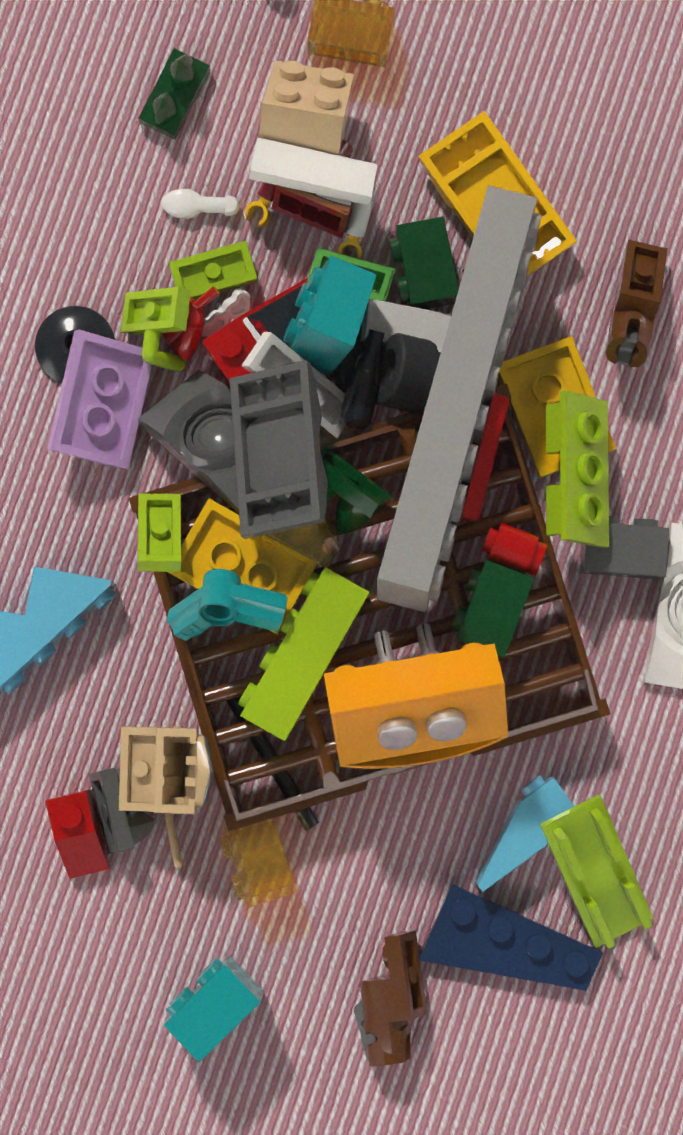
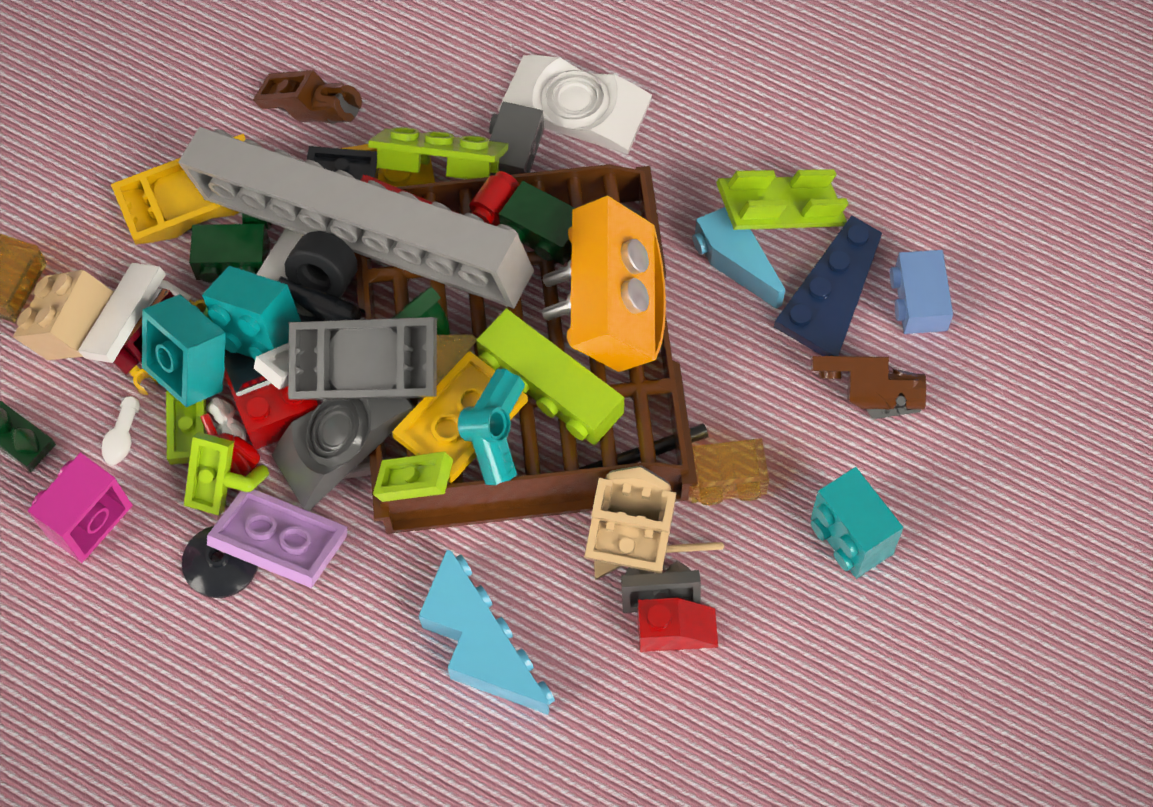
camera: 75 degrees left, 20 degrees down
(91, 188) = (80, 507): none -> dark pink brick
(282, 249) = (183, 350): none -> teal brick
(516, 1045) = (922, 292): none -> medium blue brick
(546, 362) = (348, 160): none -> black plate

